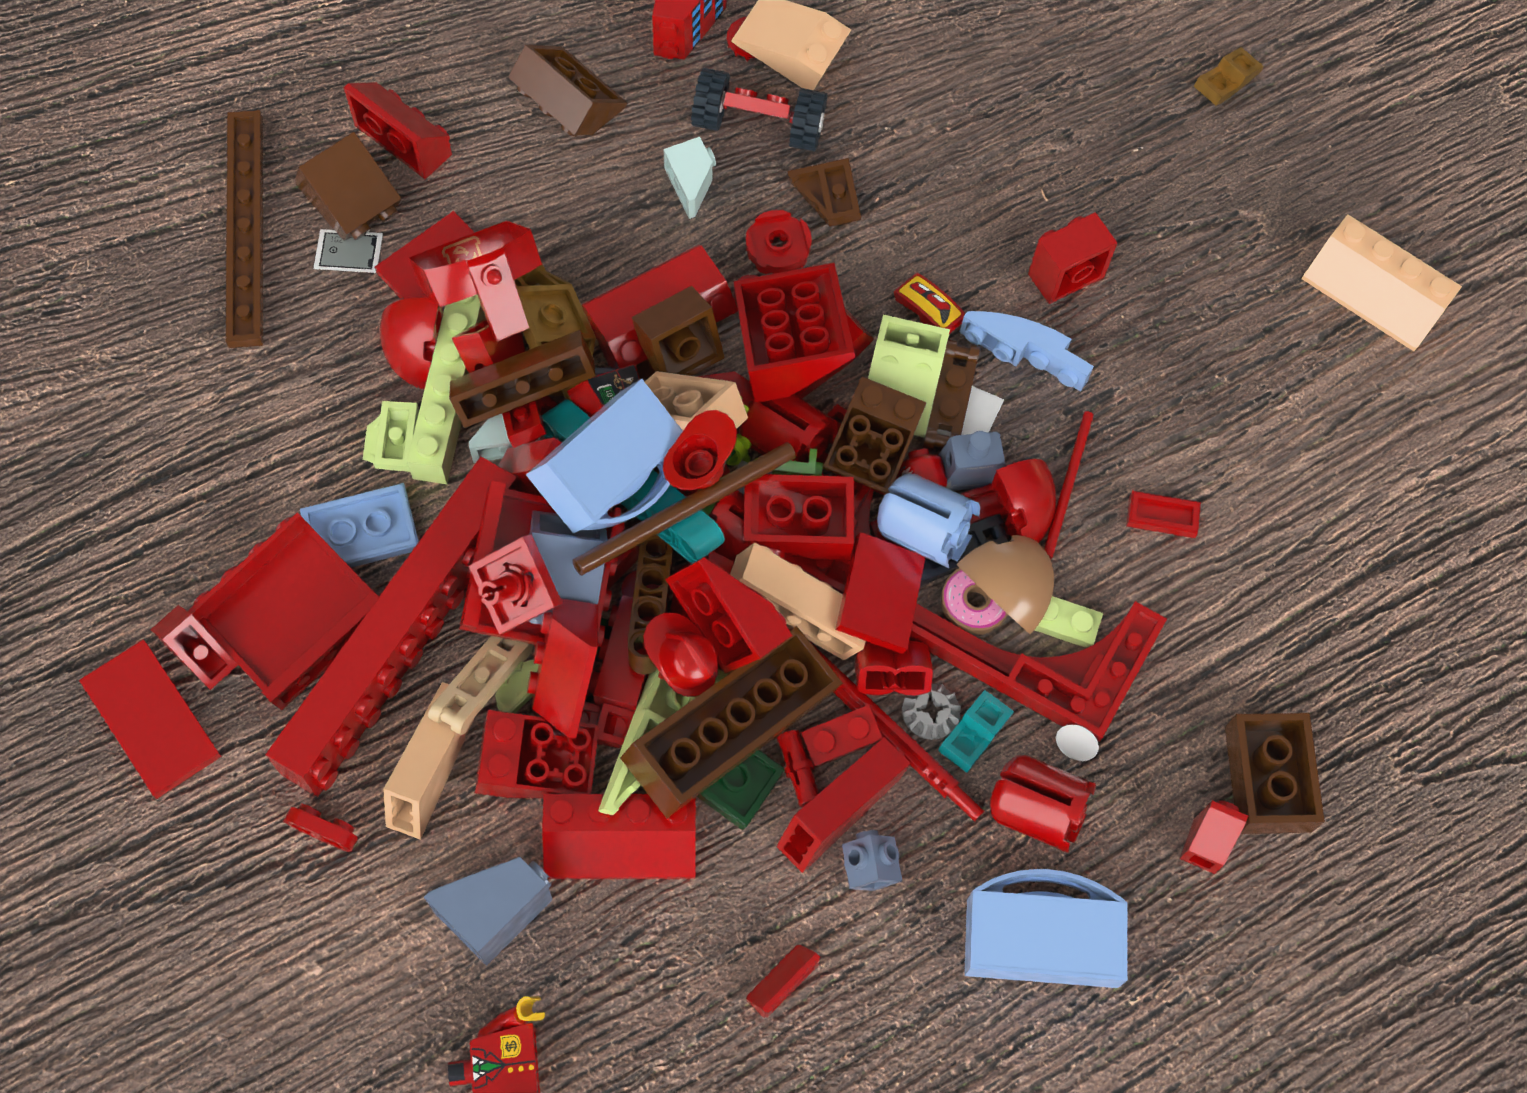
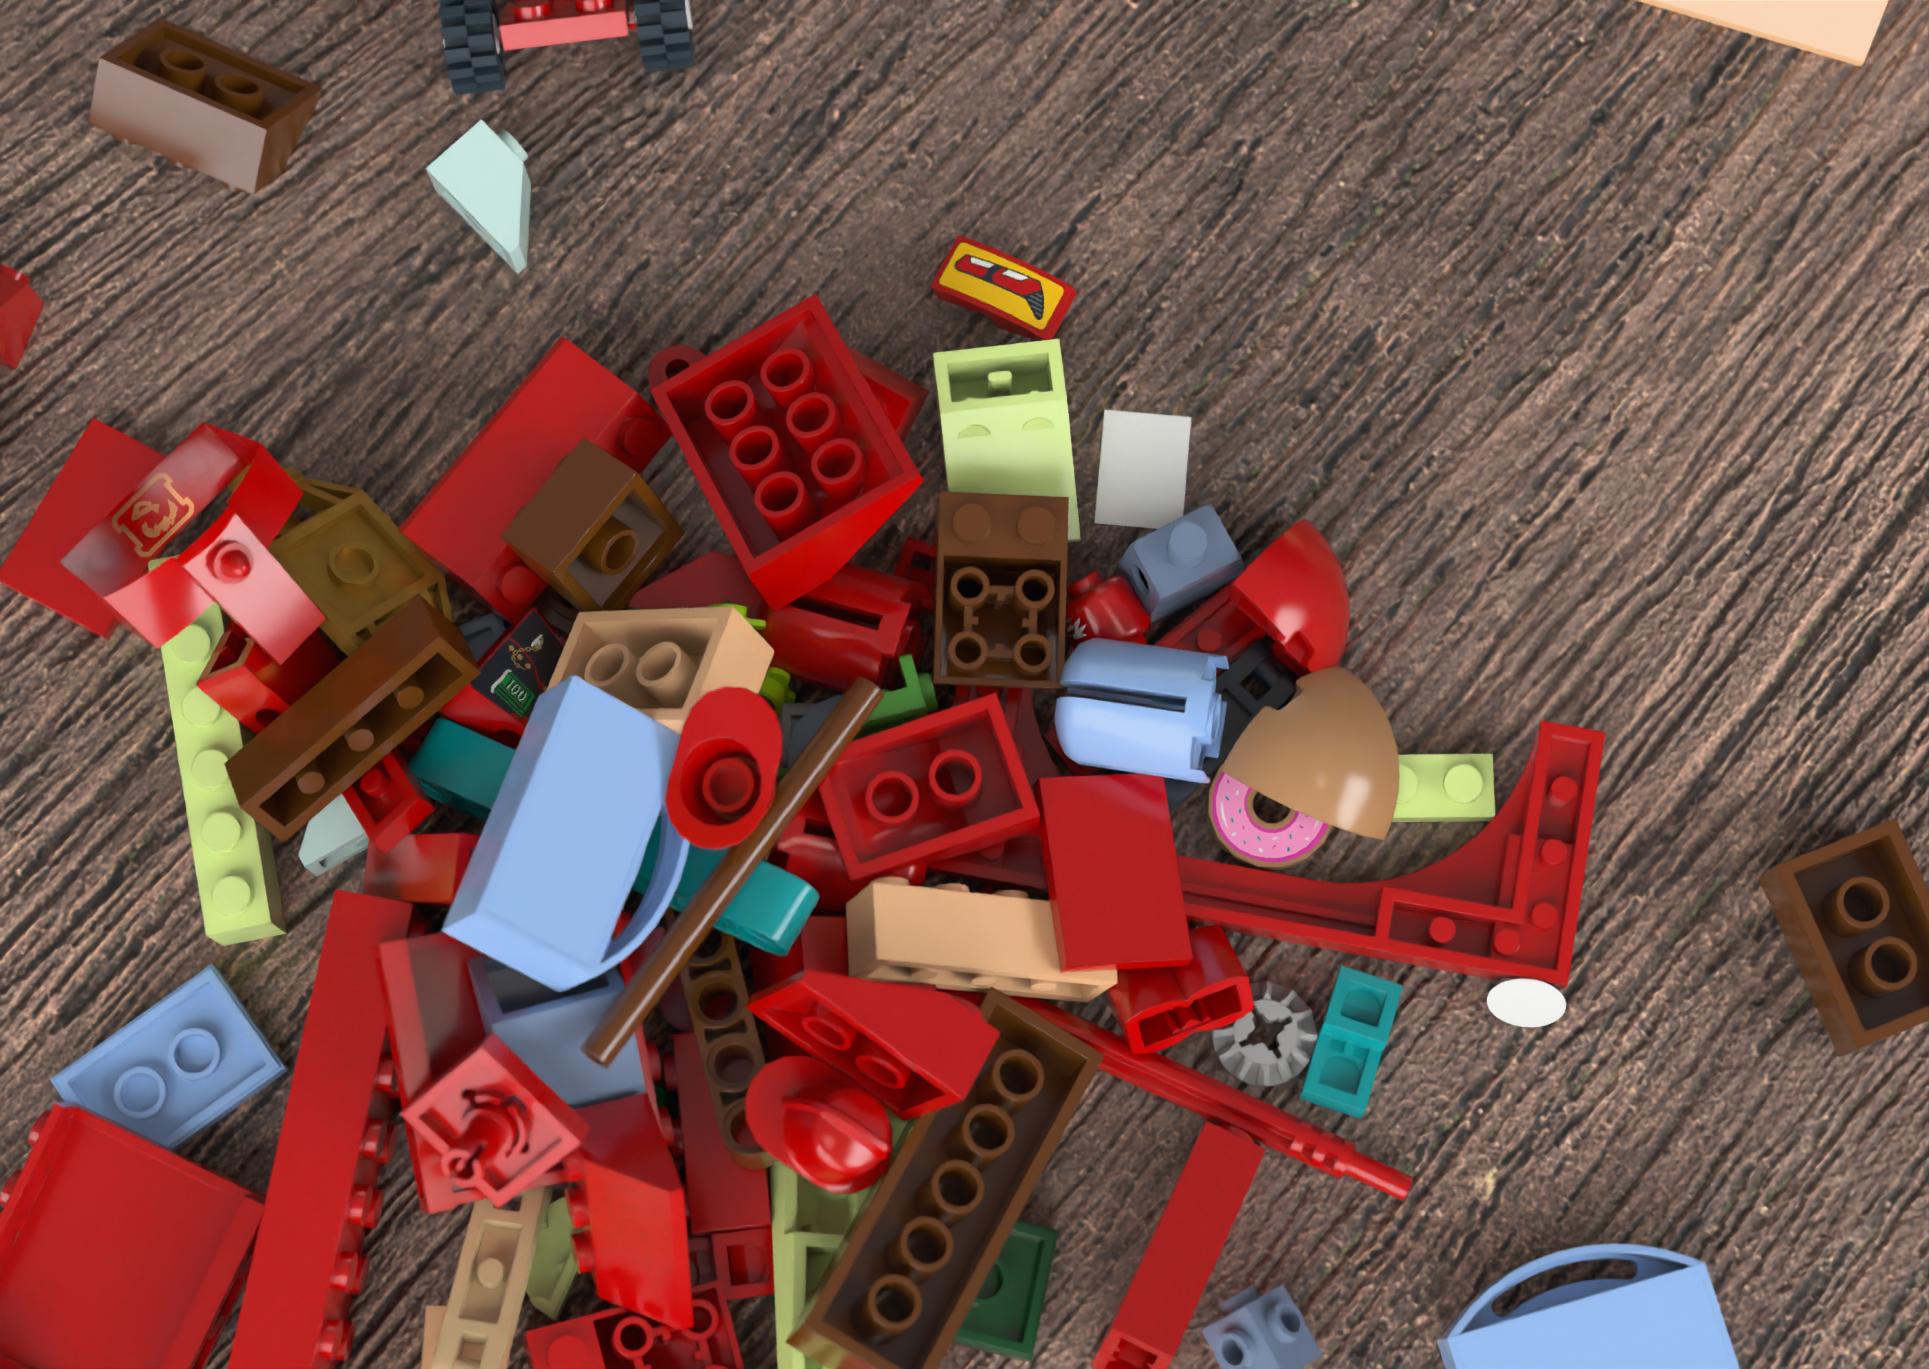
camera: 15 degrees left, 10 degrees up
(391, 436) = (156, 888): yellowish green slope -> none
(410, 336) = (117, 698): red brick -> none
(778, 259) = (690, 301): red plate -> none
(798, 767) = (1082, 1222): red pin -> none
(828, 190) = (747, 133): reddish brown wing -> none
(842, 736) = (1133, 1138): red plate -> none
(951, 394) = (1101, 449): reddish brown plate -> none
(1017, 337) = (1170, 300): light blue slope -> none
(1041, 801) = (1499, 1162): red cylinder -> none
(1068, 483) = (1354, 536): red axle -> none
(1072, 257) = (1220, 115): red brick -> none
(1163, 514) = (1533, 532): red tile -> none
(1213, 835) = (1804, 1085): slope -> none

